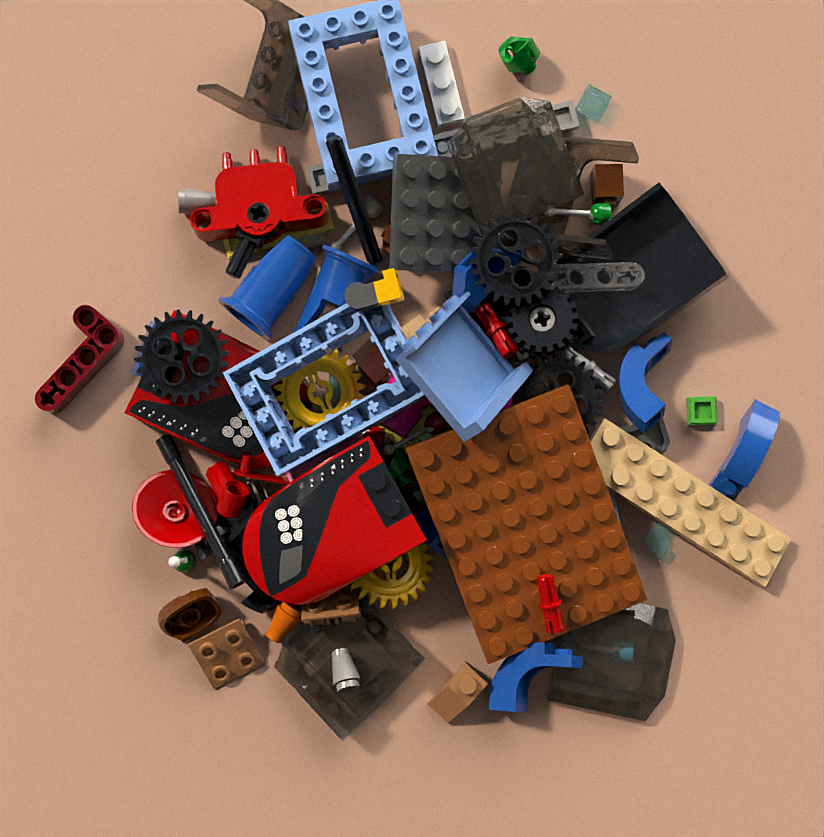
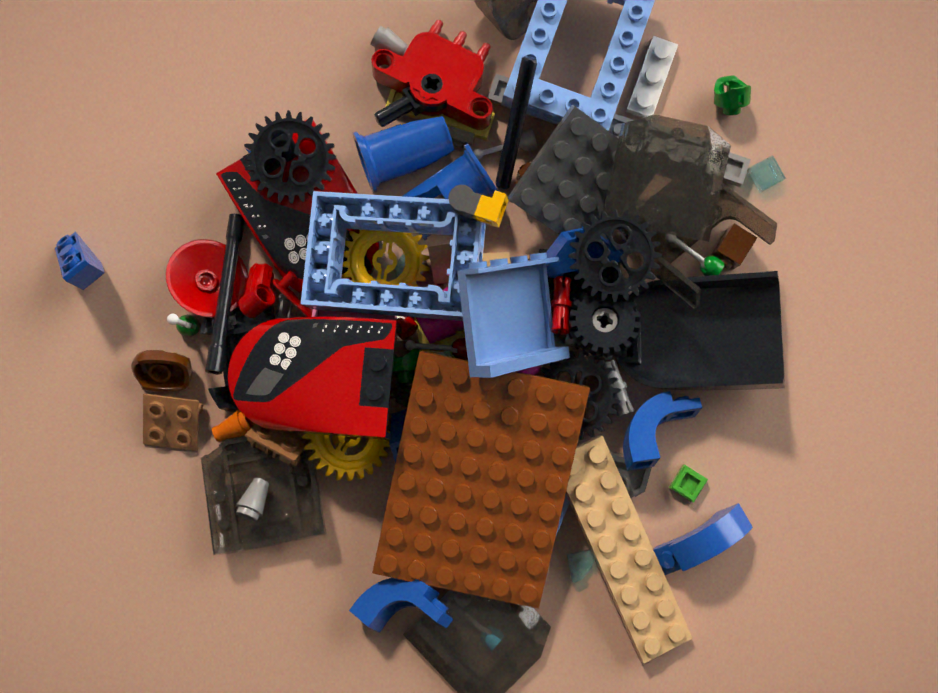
camera: 35 degrees right, 0 degrees up
(50, 568) = (77, 261): none -> blue slope
(75, 362) = (208, 110): dark red beam -> none
(457, 692) = (335, 578): medium nougat slope -> none
(550, 603) = (454, 558): red axle -> none
(590, 281) = (666, 317): clear beam -> none

